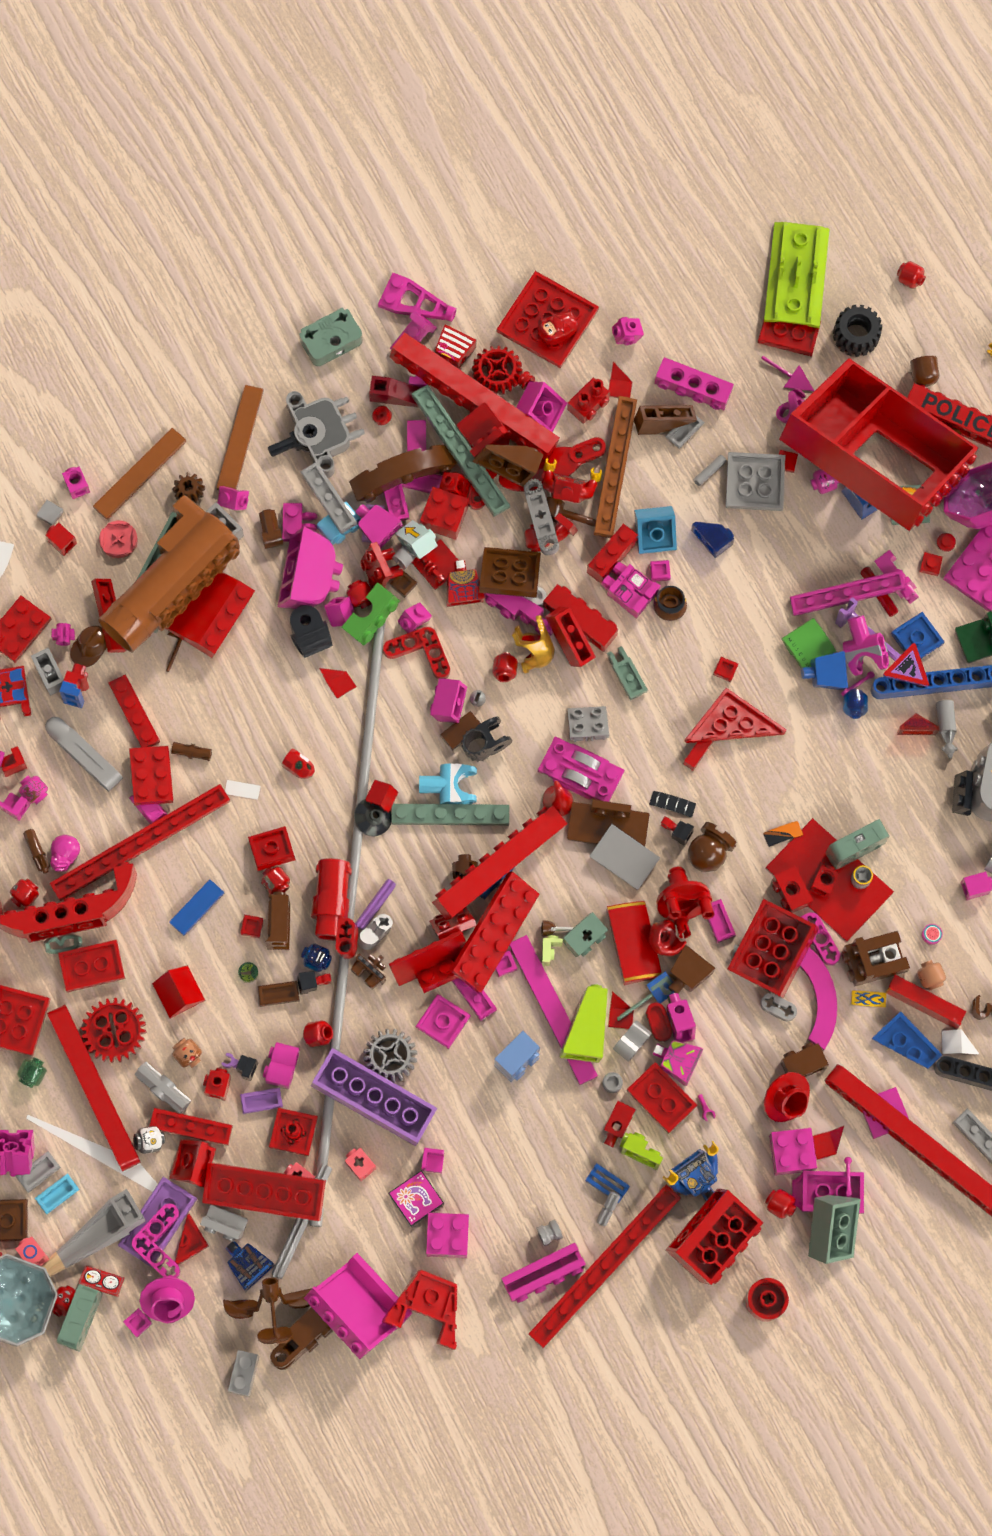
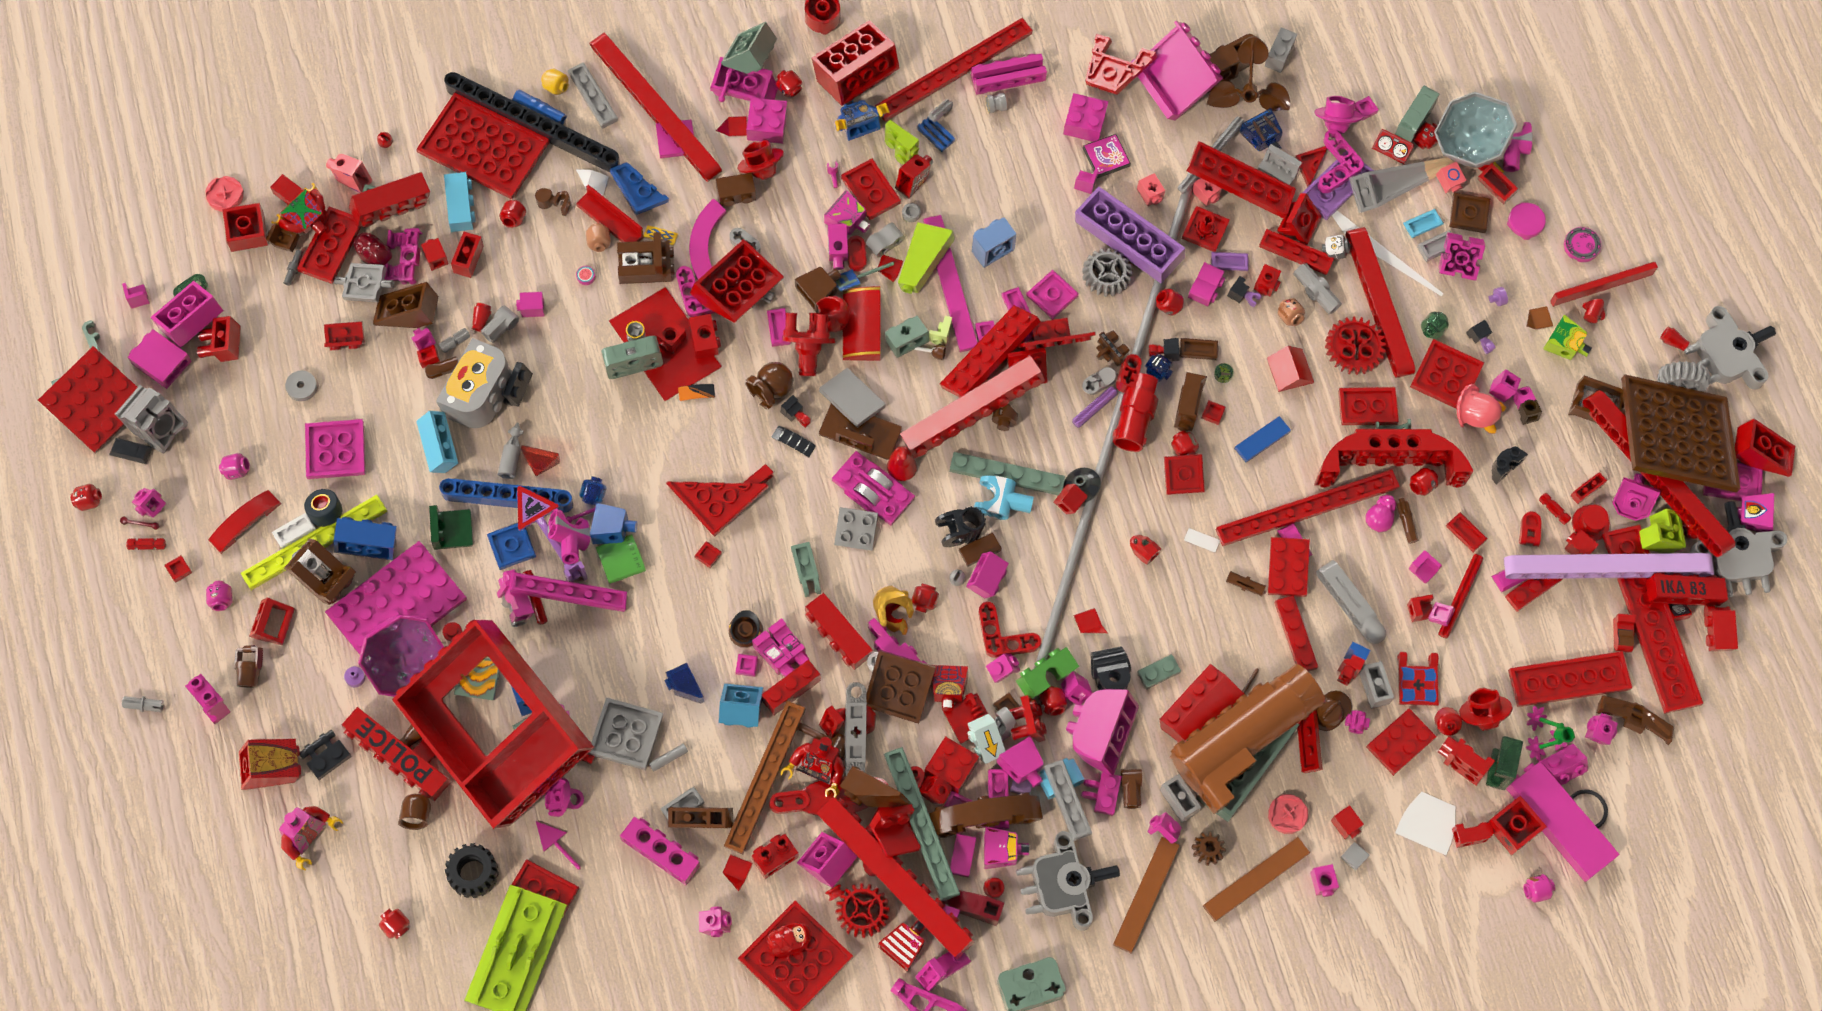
camera: 170 degrees left, 5 degrees down
(33, 789) = (1404, 576): dark pink head -> none
(263, 647) = (1159, 671): none -> sand green plate
(379, 447) = (1002, 848): none -> dark pink torso
(570, 636) = (855, 605): red brick -> none
(931, 564) = (474, 611): red plate -> none

